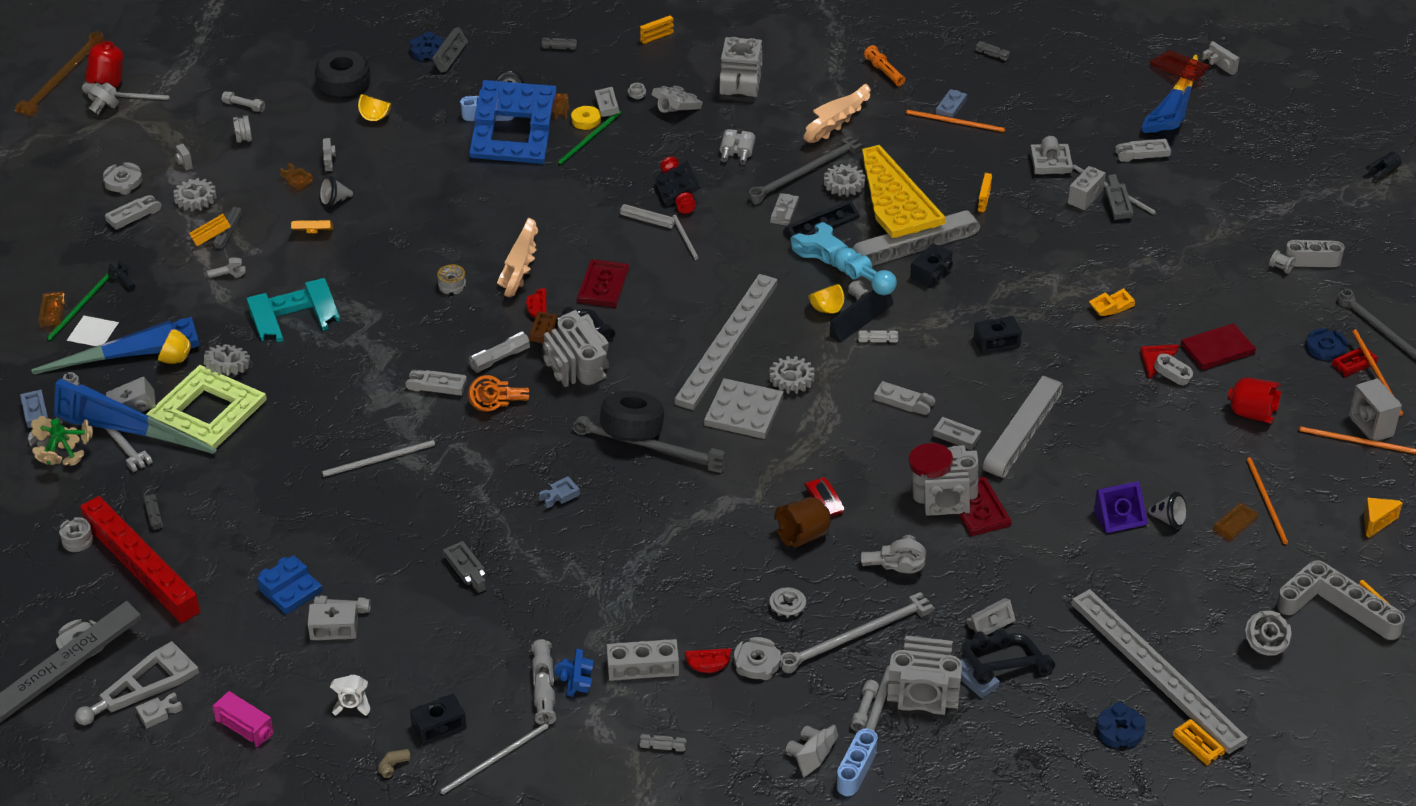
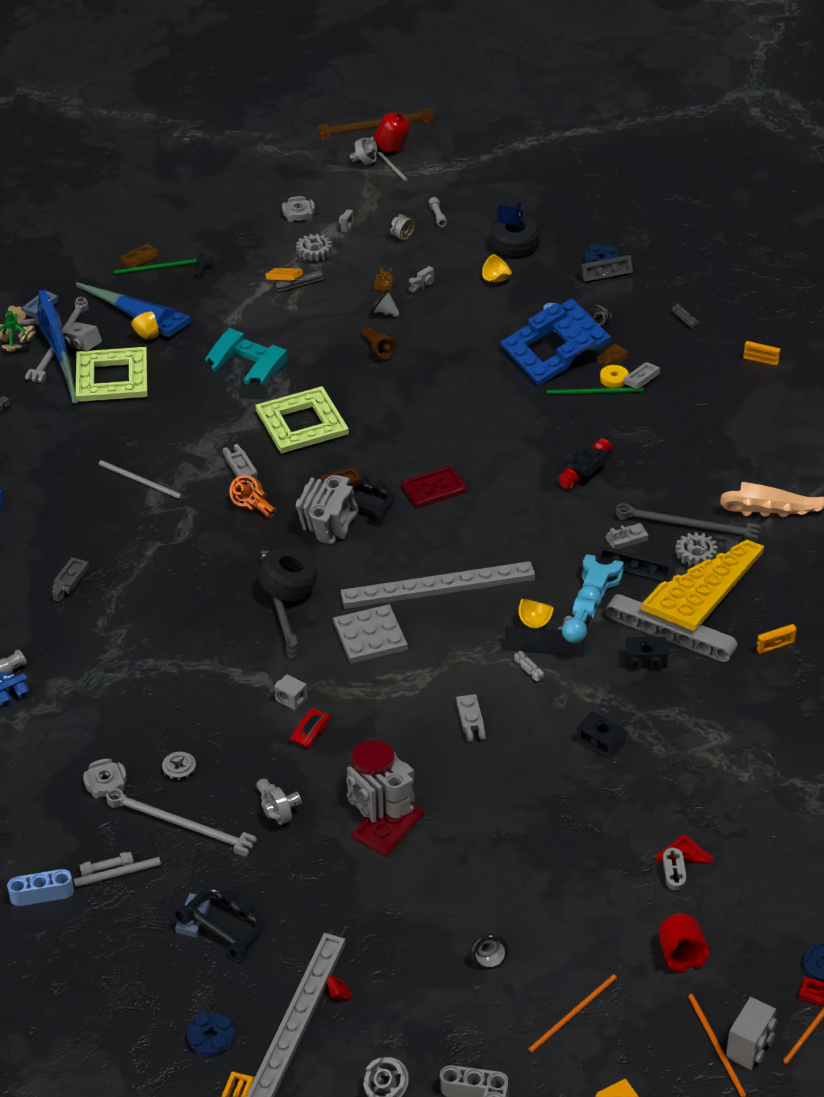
camera: 55 degrees right, 0 degrees up
(92, 331) = (140, 286): white sticker -> none
(133, 211) = (269, 232): light grey hinge -> none
(226, 360) = (162, 355): light grey gear -> none
(230, 268) = (256, 304): light grey bar -> none
(312, 226) = (339, 316): light orange plate -> none
(329, 56) = (509, 215): none -> clear blue bracket
(389, 219) = (382, 344): none -> reddish brown piece
(445, 337) = (285, 440): none -> yellowish green plate
(451, 279) = (354, 410): light grey wheel -> none
(487, 357) = (287, 472): light grey axle -> none
(519, 259) = (406, 427): light nougat animal -> none
(536, 302) = (372, 465): red plate -> none
(560, 491) = (185, 585): sand blue plate -> none
(637, 91) = (675, 384): light grey plate -> none
(642, 659) = (50, 716): light grey brick -> none
(647, 216) = (534, 468): light grey axle -> none
(674, 99) = (686, 407): light grey plate -> none
(685, 237) = (539, 495): light grey axle -> none
(708, 660) = (81, 752): red plate -> none
(737, 143) = (672, 469): light grey piece -> none
(741, 66) = (758, 418): light grey piece -> none
(770, 487) = (290, 692): none -> light grey brick
(792, 374) = (429, 638): light grey gear -> none
(802, 521) = (264, 726): reddish brown cylinder -> none
(814, 750) = (34, 857): light grey connector -> none
(925, 676) = (154, 879): light grey piece -> none
(957, 433) = (457, 769): light grey plate -> none
(992, 617) = (259, 893): light grey plate -> none
(1022, 427) = (505, 805): light grey beam -> none
(1112, 304) = (720, 789): light orange slope -> none
(1120, 507) = (461, 914): dark purple slope -> none
(1137, 622) = (338, 988): none -> red slope
(1218, 346) = (741, 887): dark red tile -> none
(1235, 521) = (524, 1002): clear orange tile -> none

